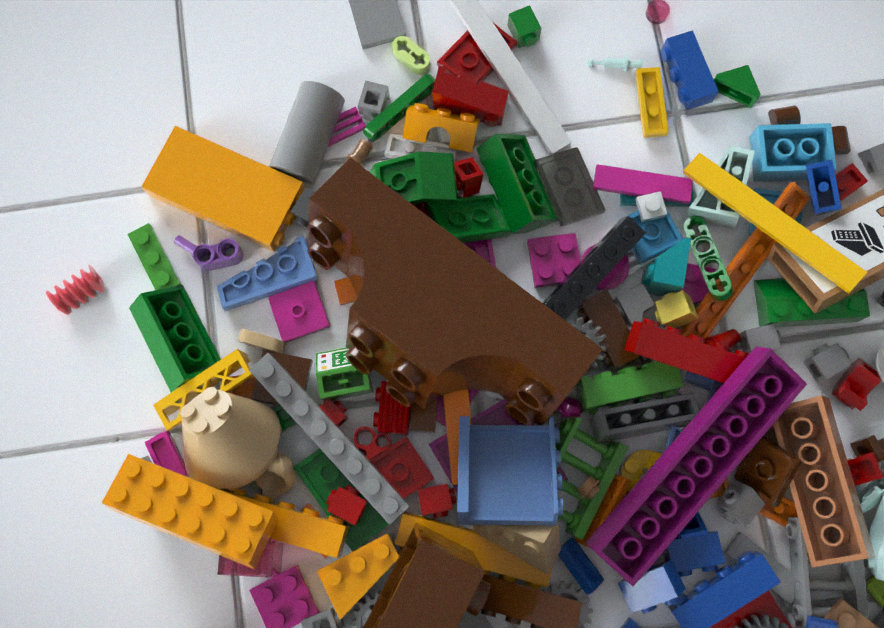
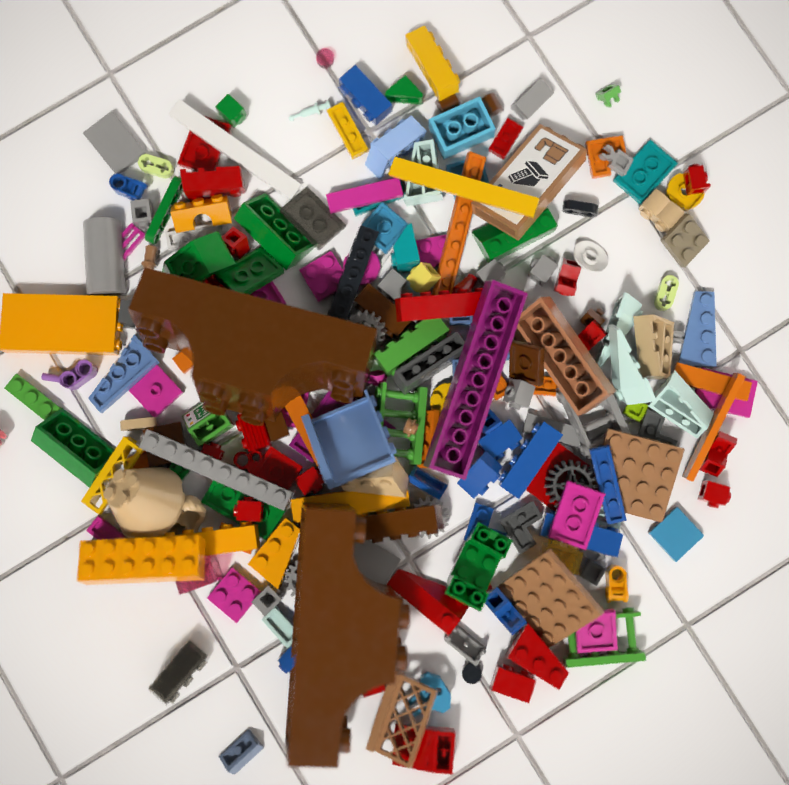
camera: 25 degrees left, 5 degrees up
(372, 68) = (131, 188): none -> blue piece
(651, 206) = (376, 210): white plate -> none
(704, 136) = (393, 144): none -> light blue wedge
(708, 257) = (431, 230): green beam -> none
(785, 64) = (432, 63): none -> yellow brick
(823, 188) = (491, 147): blue slope -> none

